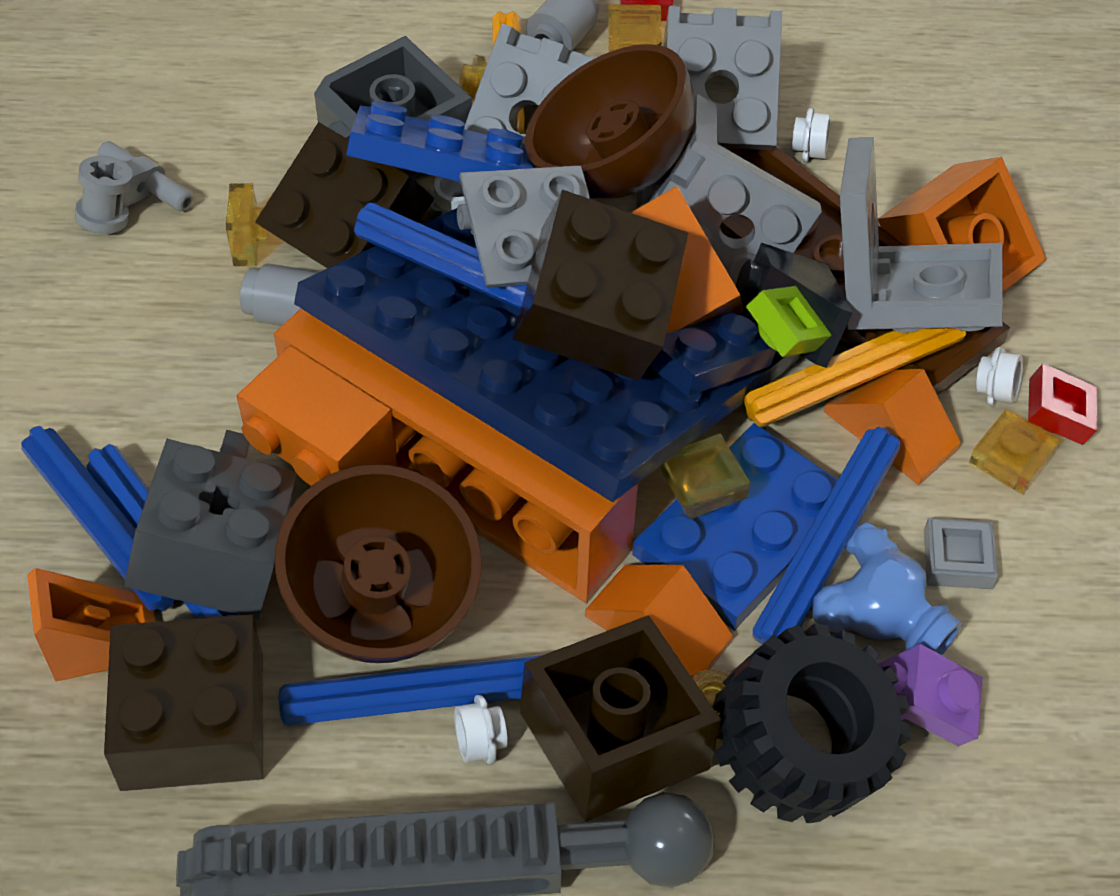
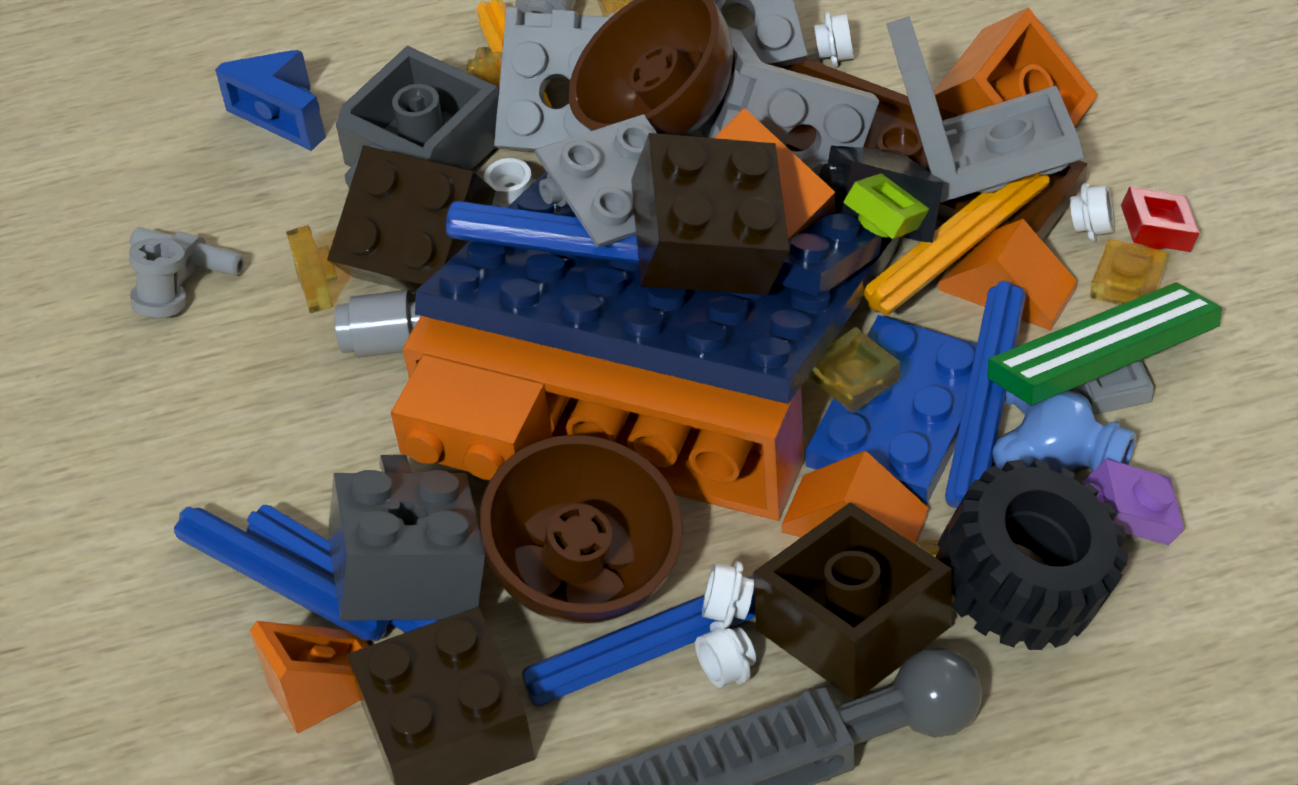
camera: 10 degrees left, 5 degrees down
(279, 49) = (273, 95): none -> blue slope
(432, 146) = (484, 137): blue plate -> none
(497, 673) = (727, 594): none -> white plate
(961, 519) = (1103, 343): none -> green tile

